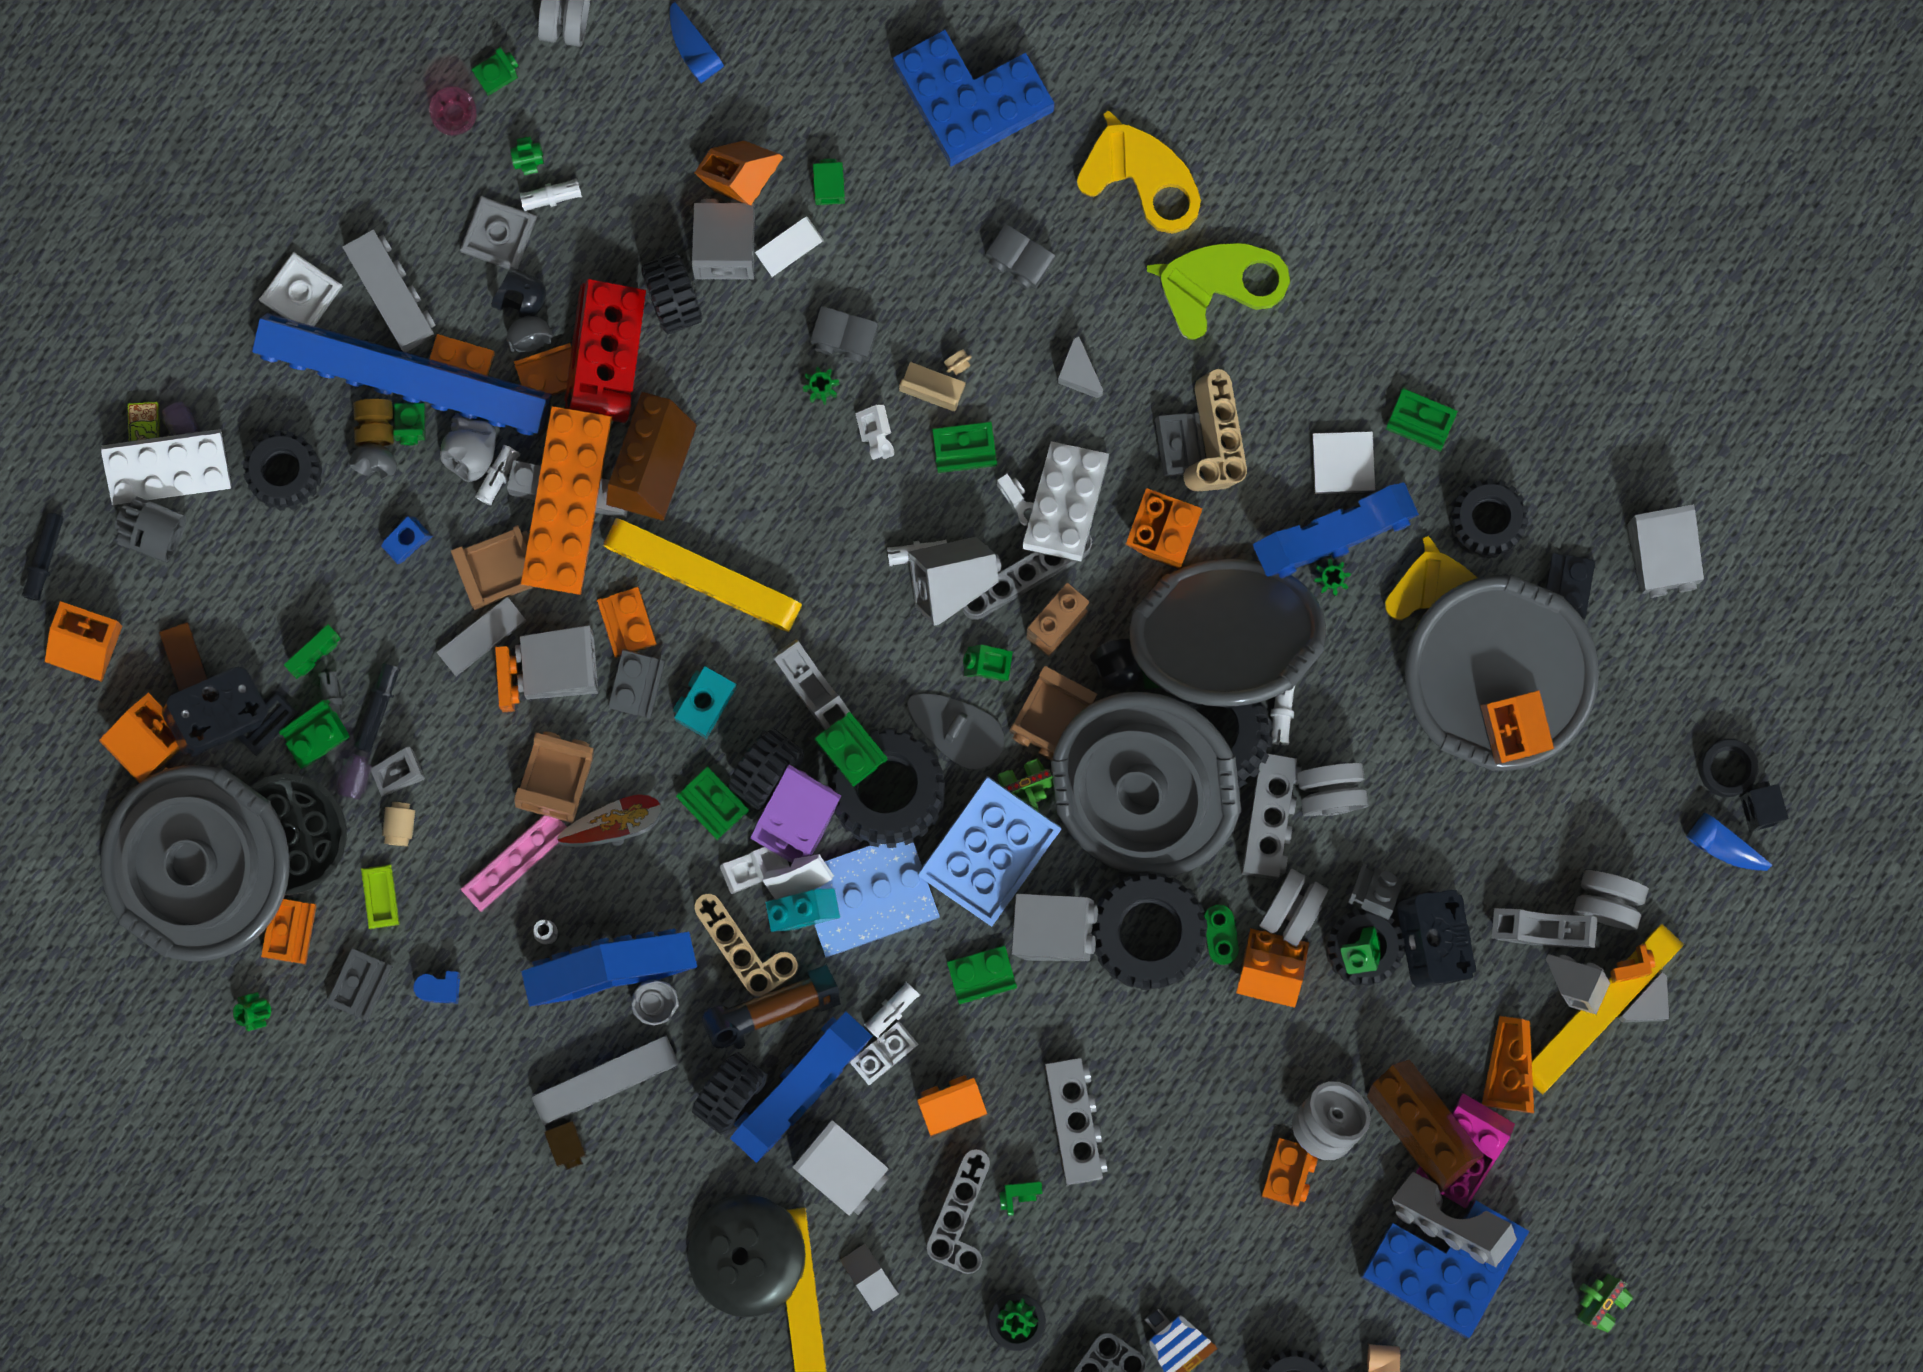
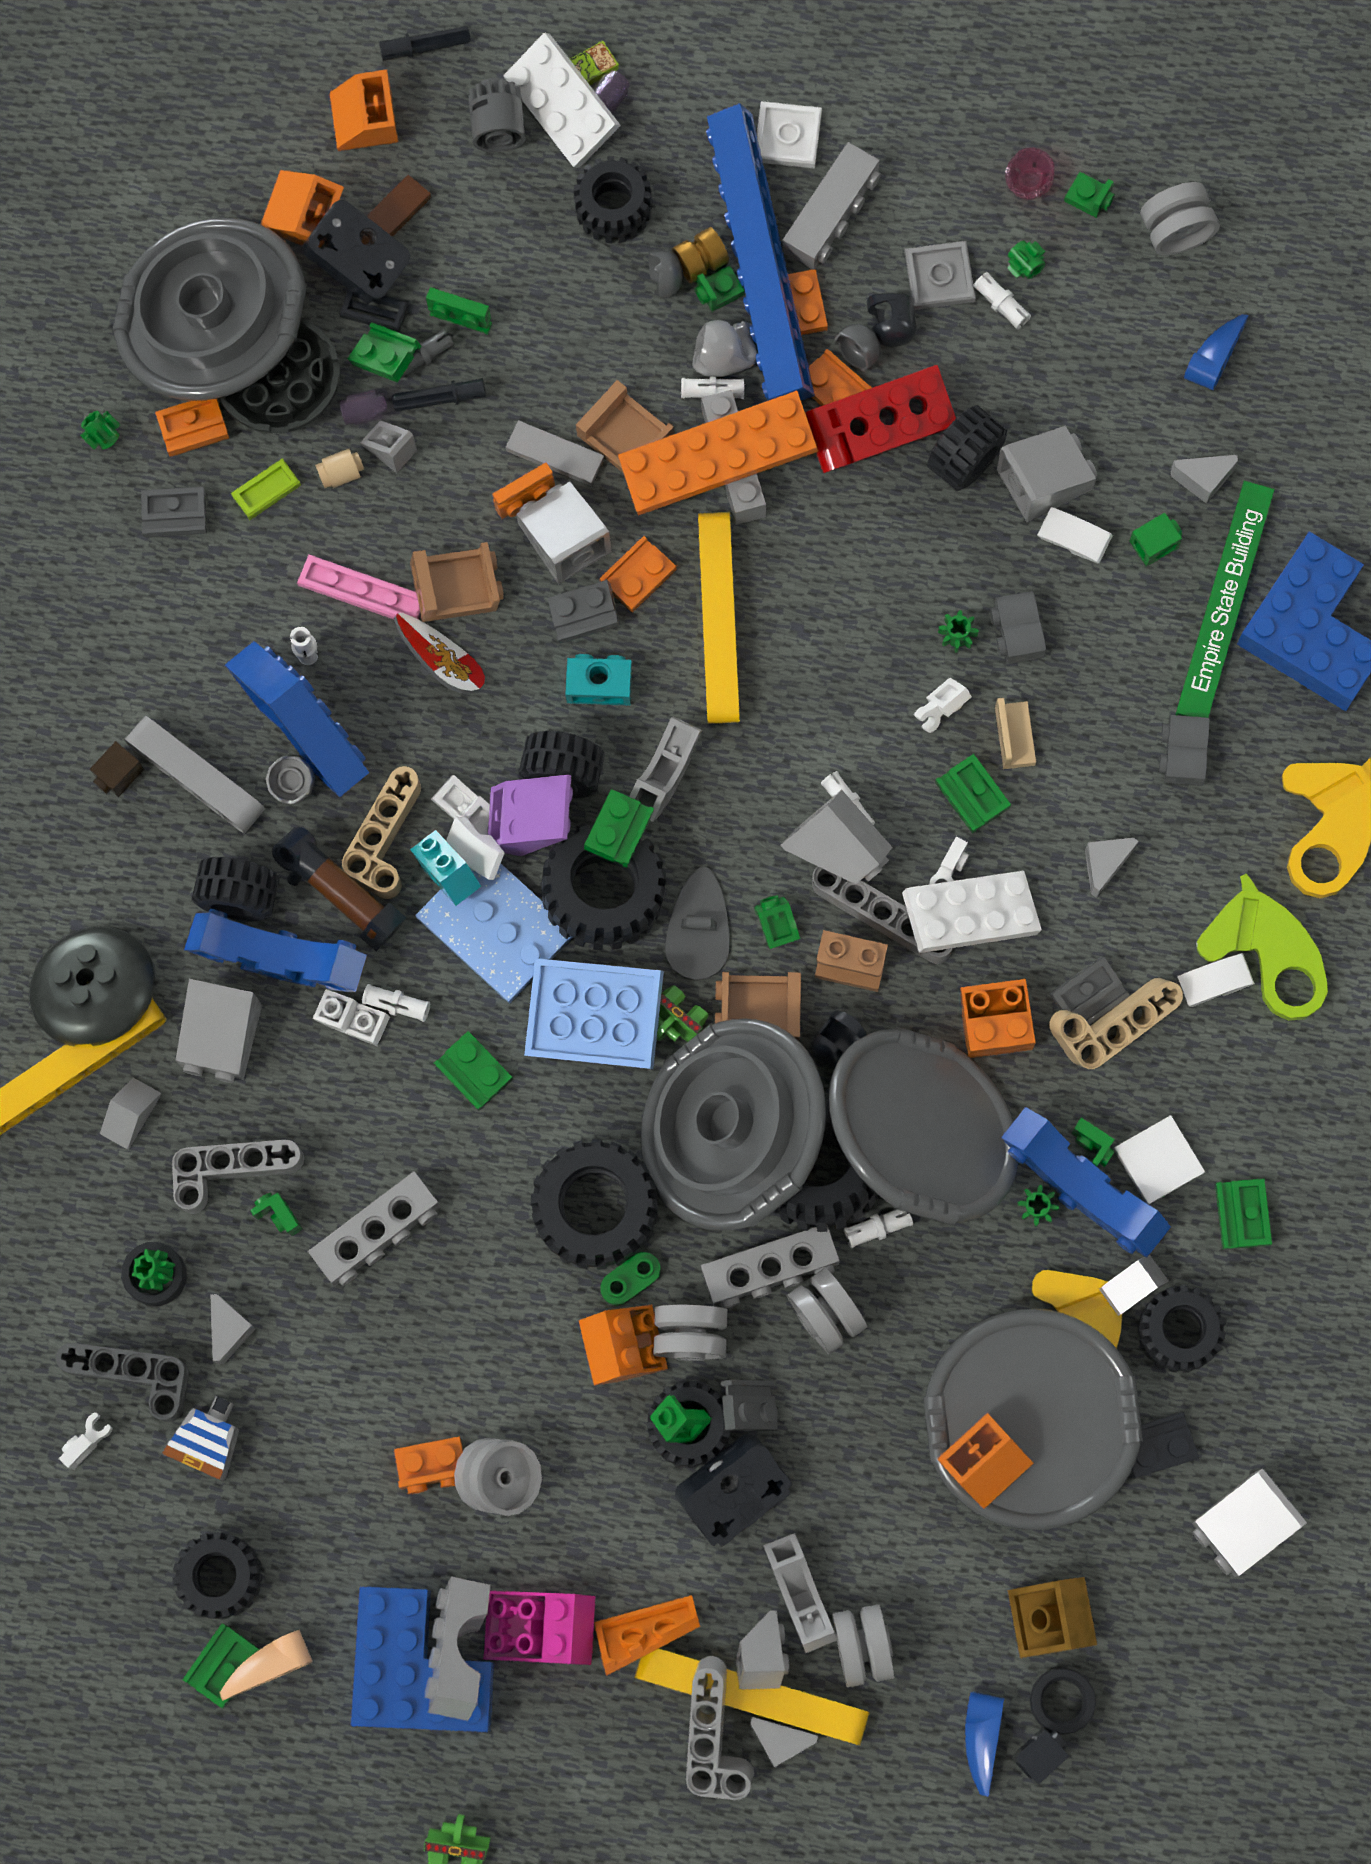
camera: 70 degrees right, 5 degrees down
(406, 539) = (609, 339): blue leg -> none
(438, 990) = (204, 582): blue leg -> none
(651, 457) = (800, 508): reddish brown slope -> none
(712, 803) = (506, 736): green plate -> none
(738, 170) = (1120, 449): orange slope -> none
(795, 115) = (1204, 475): none -> light grey slope
(910, 156) = (1225, 600): none -> green tile
(952, 1105) = (328, 1103): orange slope -> none
(958, 362) = (1051, 745): tan plate -> none
(1054, 928) = (547, 1107): light grey slope -> none
(1094, 1282) = (228, 1329): none -> light grey slope
(1222, 337) = (1216, 980): none -> white slope
(1299, 506) = (1091, 1137): none -> green bracket
(1423, 1124) = (542, 1571): reddish brown slope -> none
(1435, 536) = (1133, 1284): none -> slope
(1613, 1052) = (711, 1727): none -> light grey beam
(1629, 970) = (801, 1698): orange bracket -> none
(1661, 741) = (1052, 1617): none -> pearl gold slope

